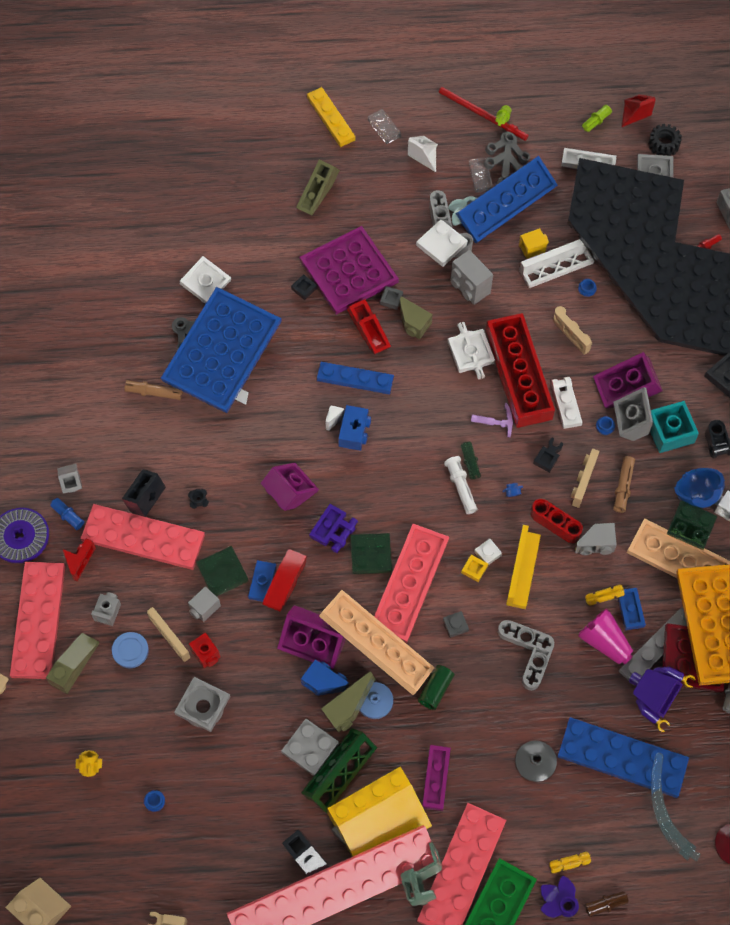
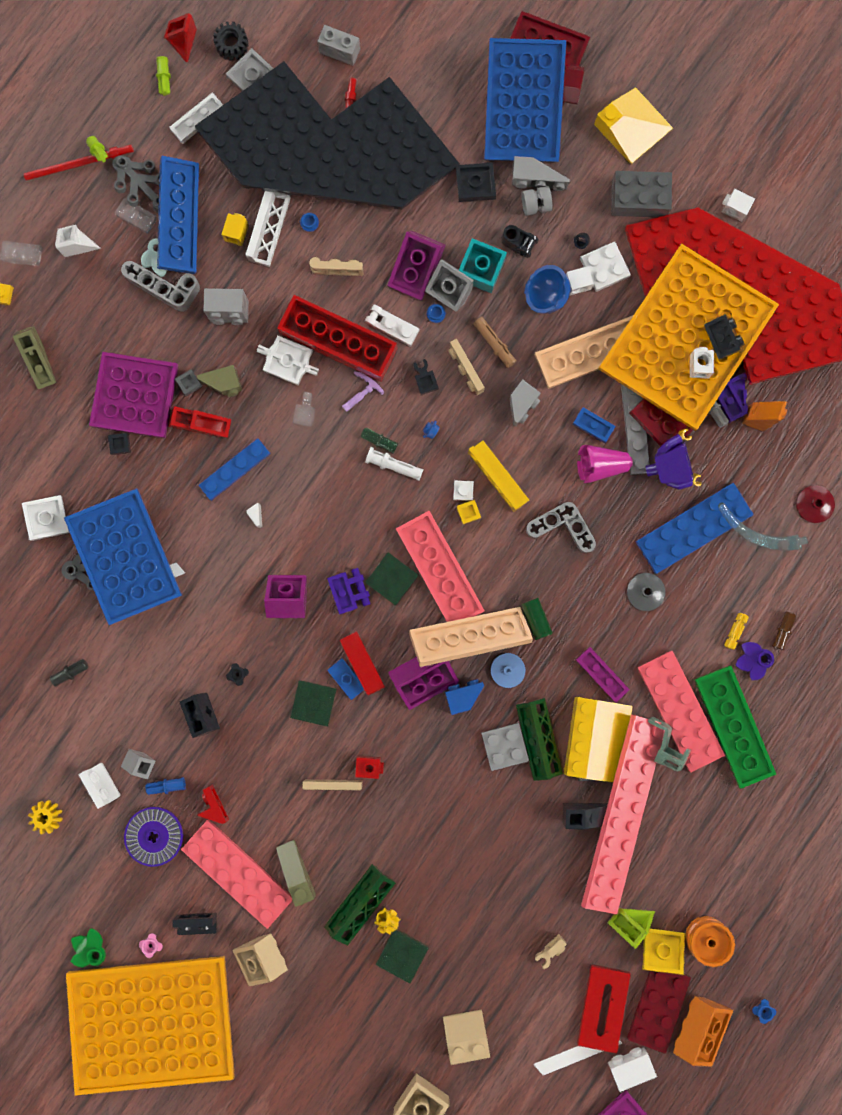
camera: 50 degrees left, 20 degrees up
(29, 465) = (99, 785): none -> white bracket
(68, 801) = (402, 955): none -> clear green plate
(85, 727) = (356, 904): none -> dark green fence
(100, 381) = (69, 672): none -> pearl dark grey axle
(108, 614) = (280, 817): light grey brick -> none
(130, 650) = (320, 822): medium blue piece -> none
(143, 536) = (233, 741): coral plate -> none
(153, 390) = (106, 642): medium nougat pin -> none
(154, 801) = (453, 892): blue plate -> none
(198, 691) = (403, 814): light grey piece -> none
(203, 604) = (330, 739): light grey brick -> none
(346, 706) = (499, 699): olive slope -> none
(351, 437) = (281, 517): blue brick -> none
(441, 243) = (175, 302): white plate -> none
(443, 393) = (304, 413): none -> clear plate
(455, 624) = (499, 562): dark grey plate -> none
(560, 529) = (475, 425): red beam -> none
(605, 595) = (569, 435): yellow axle -> none
(691, 525) = (570, 324): clear green slope -> none

